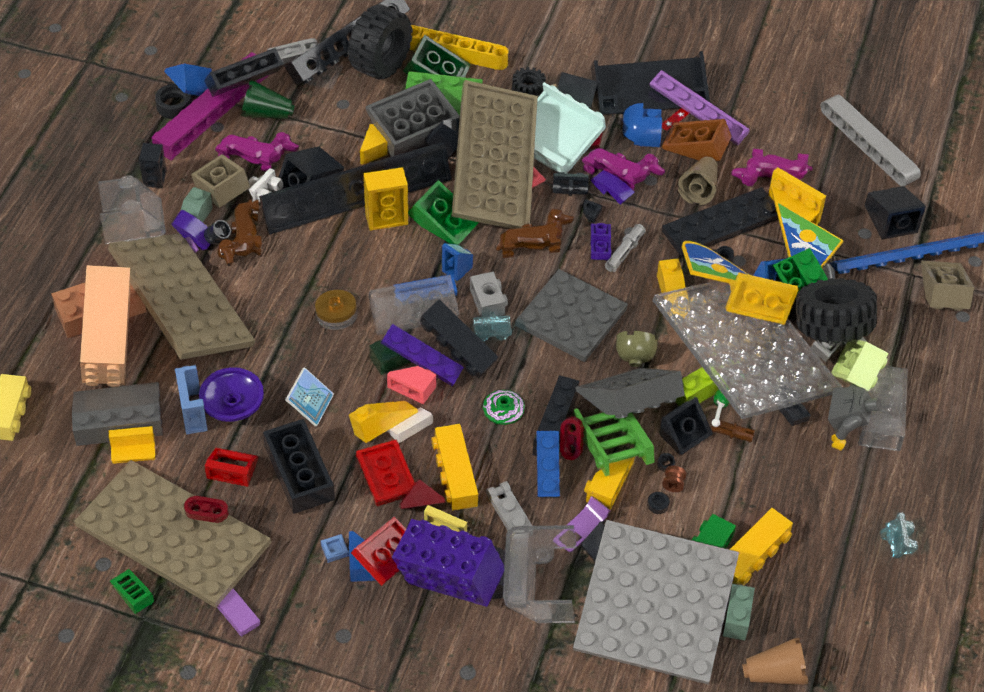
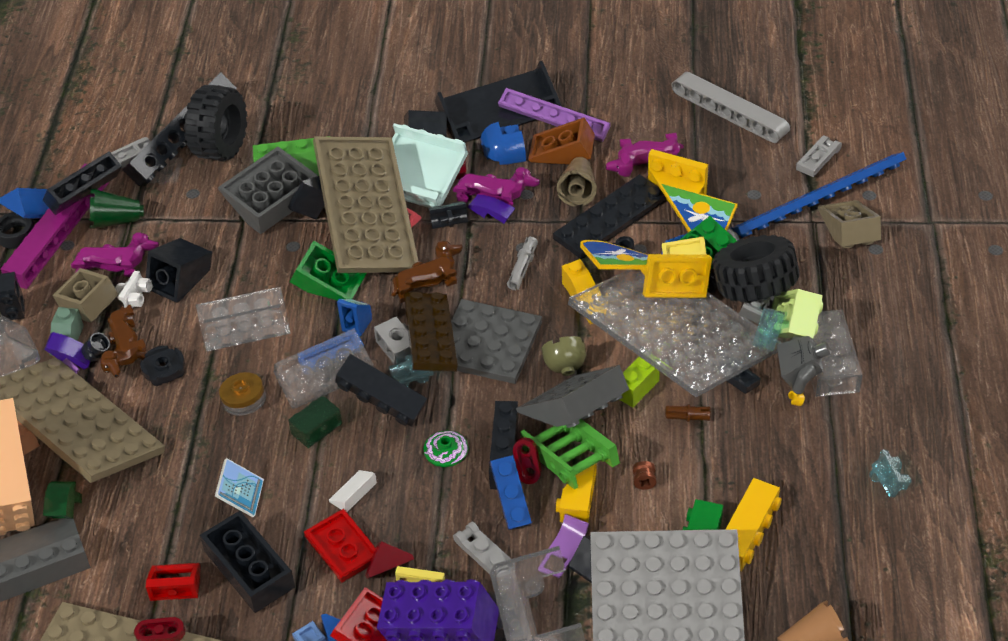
camera: 10 degrees left, 5 degrees down
(132, 444) = (59, 585): yellow panel -> none
(151, 367) = (60, 500): none -> dark green brick
(193, 410) = (117, 533): medium blue panel -> none
(231, 386) = (154, 506): dark purple dish -> none
(277, 272) = (162, 374): none -> black plate
(345, 189) = (228, 269): black plate -> none
(354, 239) = (243, 319): none -> clear brick
(373, 146) = (236, 225): yellow slope -> none
(378, 418) = (317, 492): yellow slope -> none
(386, 198) = (265, 266): yellow brick -> none
(413, 383) = (344, 447): coral slope -> none
(422, 354) = (346, 416): dark purple plate -> none
(435, 59) = (274, 127): dark green slope -> none
(455, 467) = (414, 520): yellow brick -> none
(469, 49) = (297, 113): yellow beam -> none
(519, 294) = (430, 332): none -> dark brown plate
(528, 76) = (381, 124): black tyre -> none
(591, 210) = (476, 235): black tile -> none
(600, 241) = (495, 263): dark purple slope -> none
(658, 502) = (635, 503): black tile -> none
(664, 458) = (627, 458): black hinge -> none
(676, 117) = (534, 129): red sticker -> none
(685, 426) = (639, 421): black slope -> none
(721, 402) = (668, 388): hinge -> none
(738, 612) = (754, 592): sand green brick -> none
(777, 273) = (692, 246): none -> light yellow tile
(831, 370) = (768, 328): none -> clear light blue hips
(895, 212) = (777, 166): black slope -> none
(941, 209) = (818, 156): none -> light grey plate

